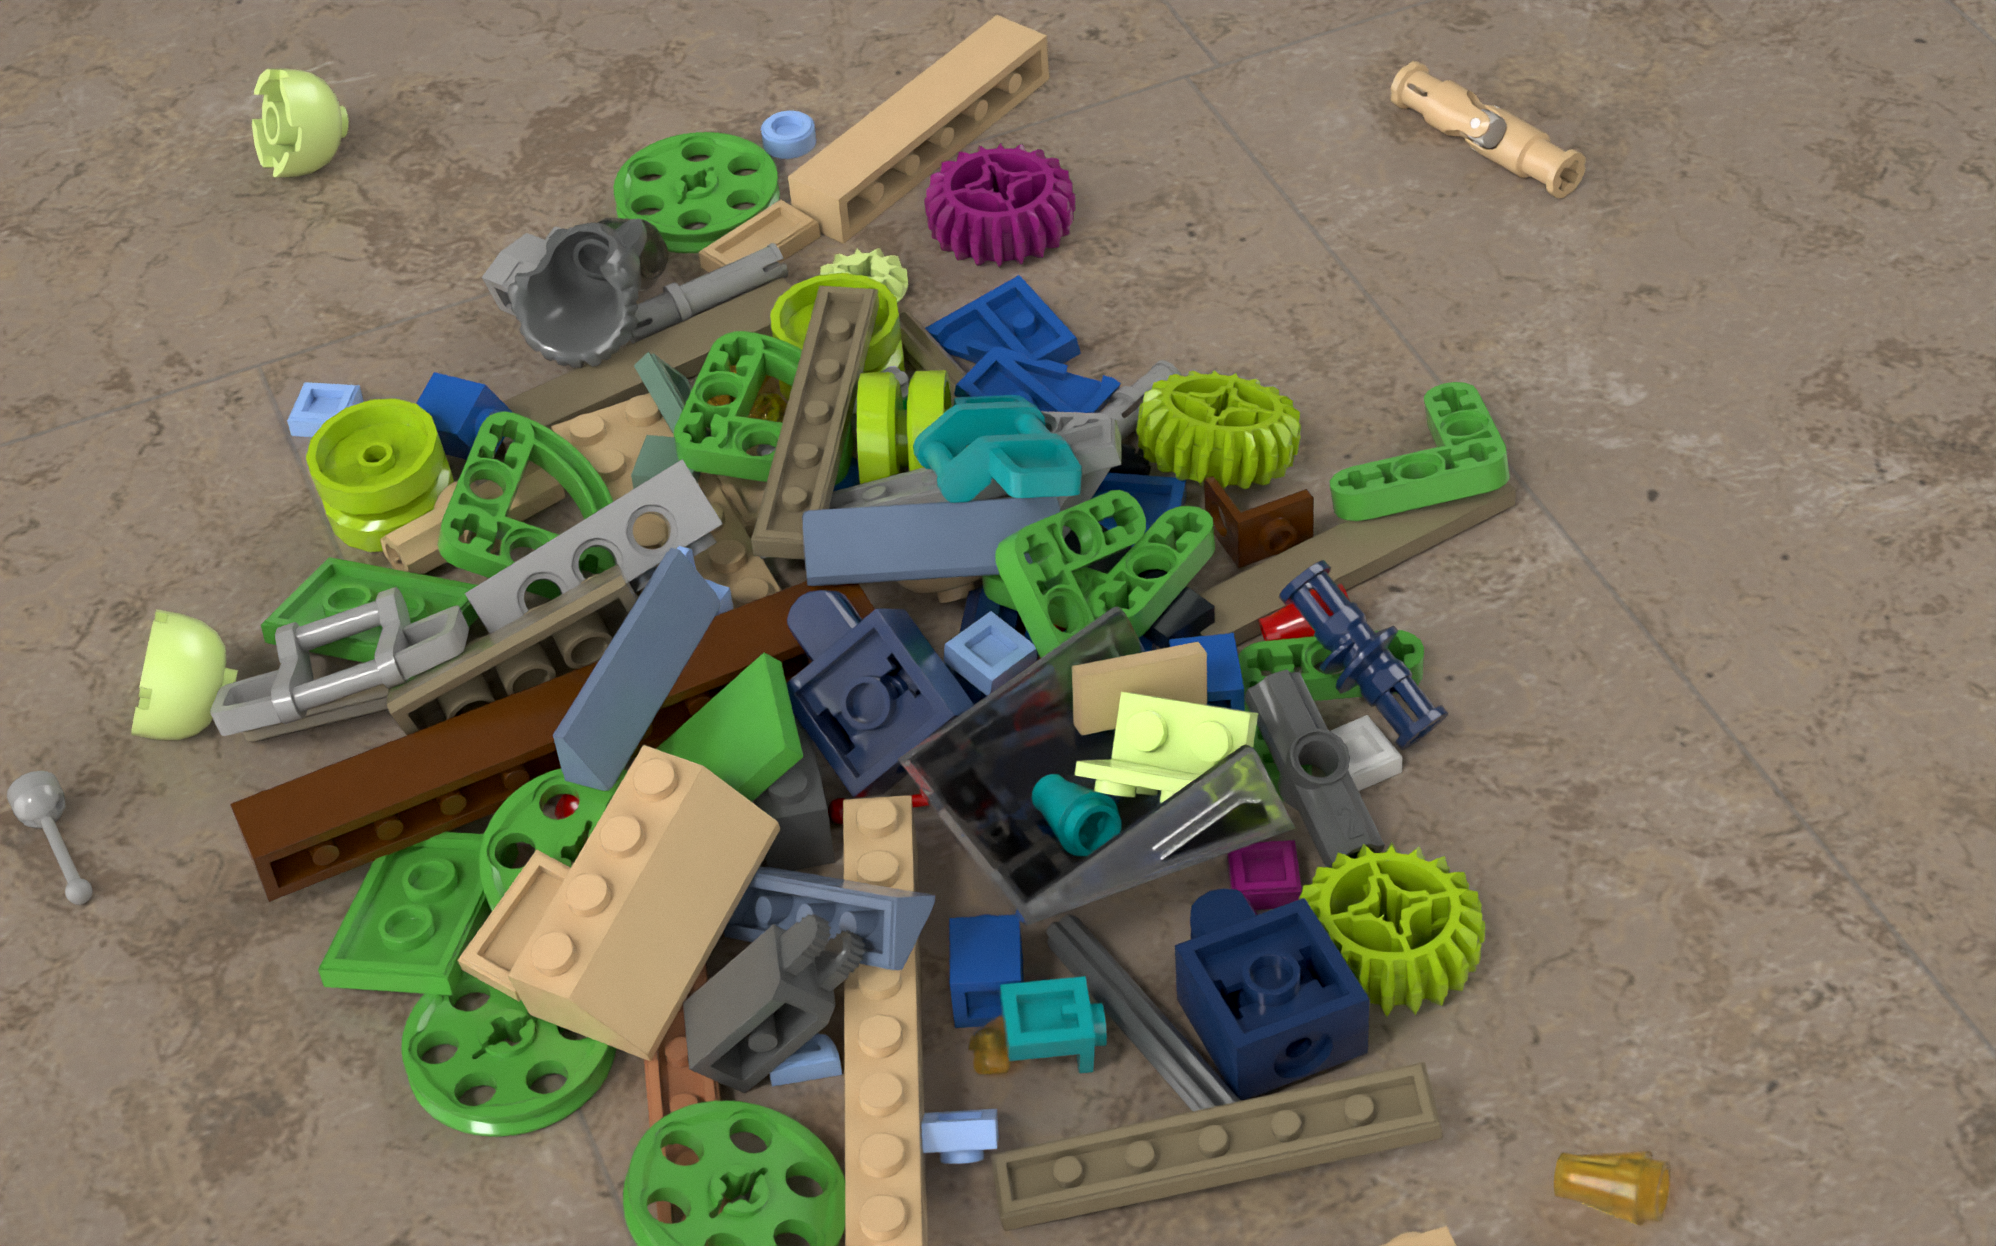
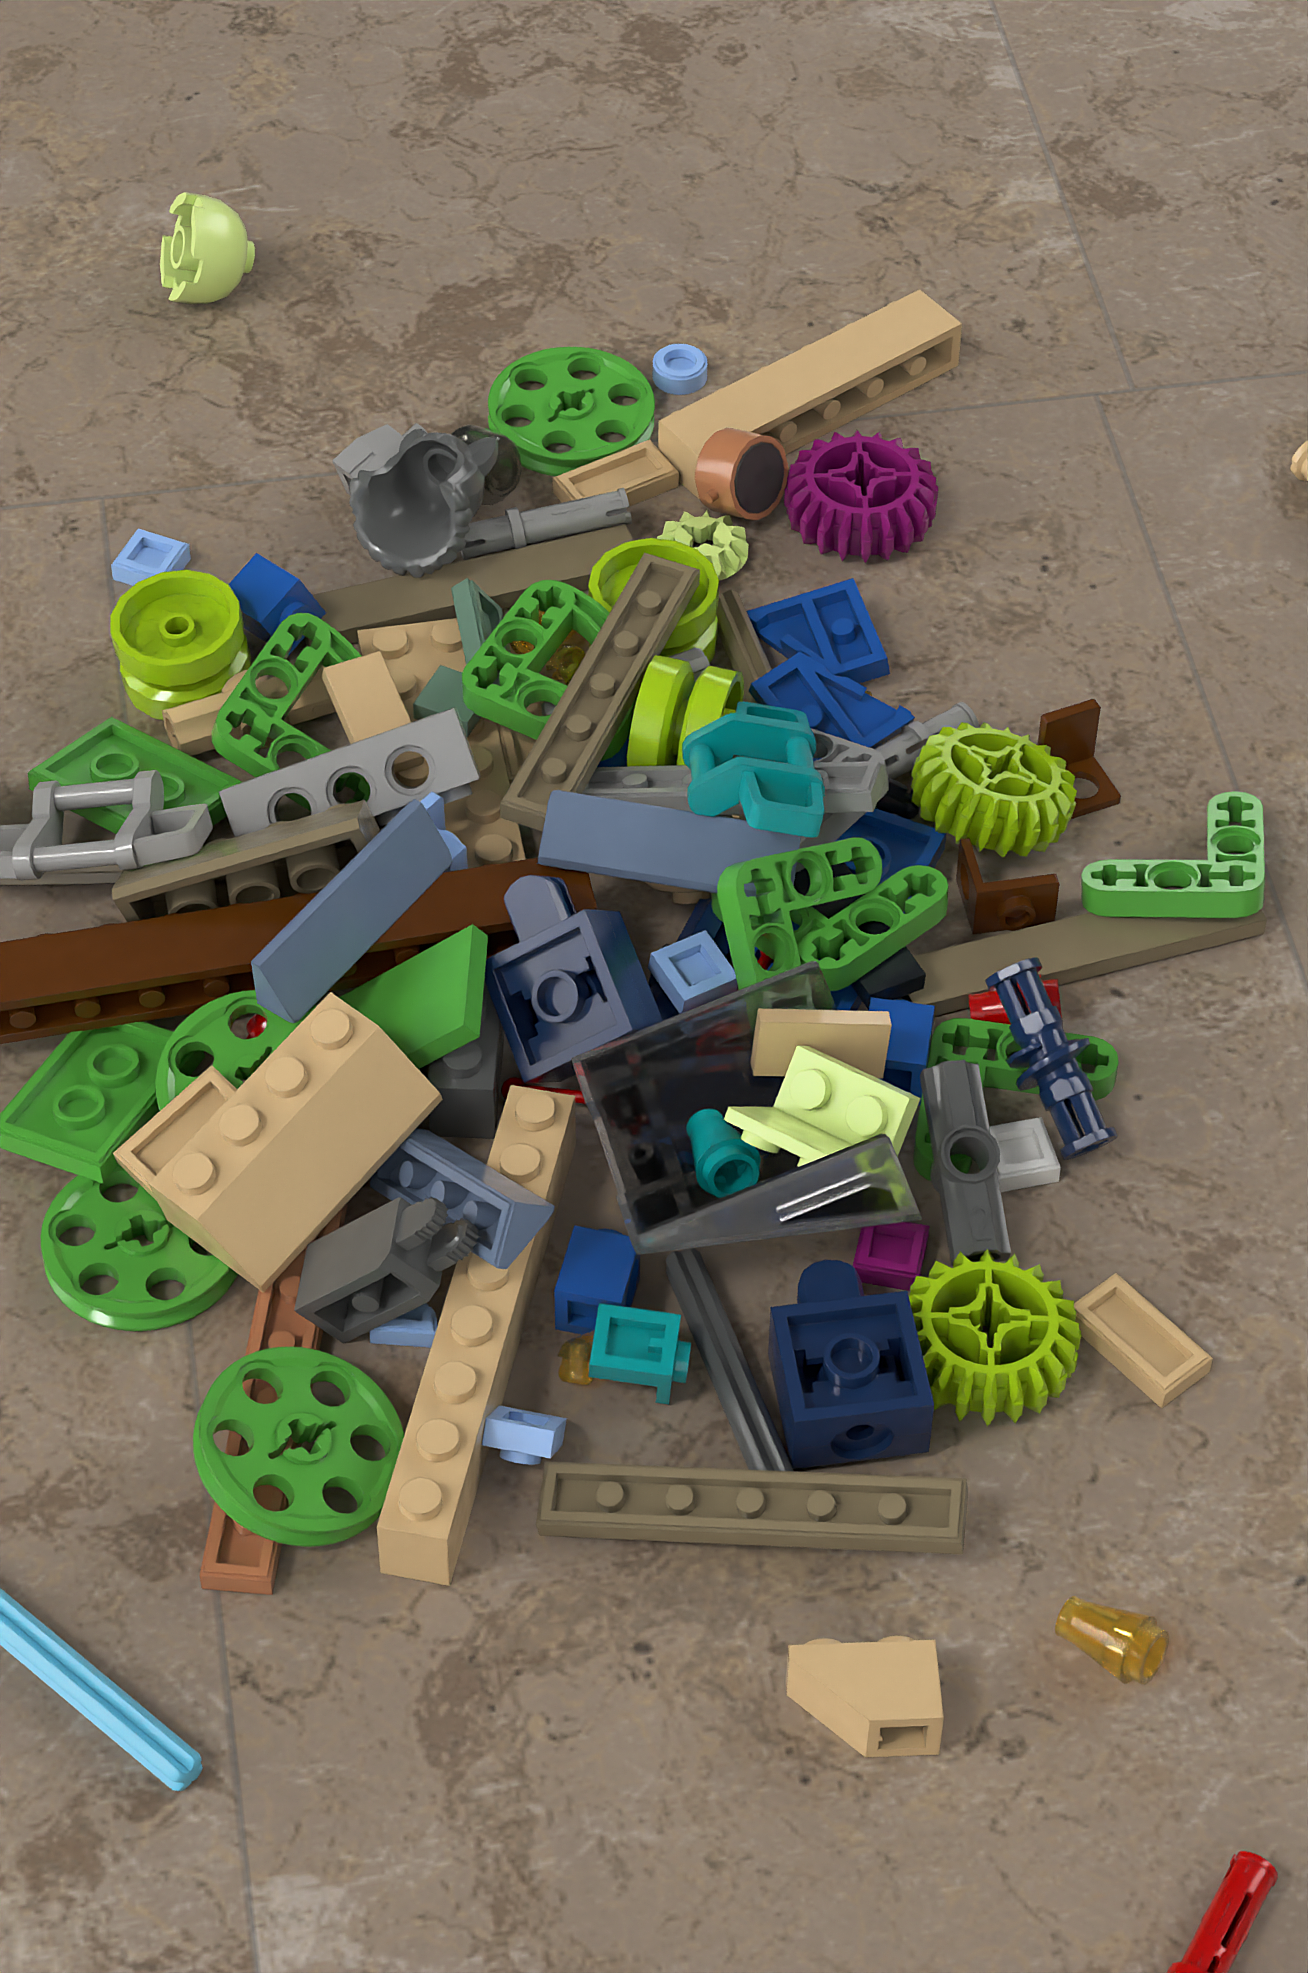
camera: 10 degrees right, 5 degrees up
(587, 481) = (368, 701): none -> tan tile
(882, 206) = (741, 473): none -> nougat piece
(1276, 364) = (1072, 737): none -> reddish brown bracket
(1537, 898) = (1140, 1340): none -> tan tile

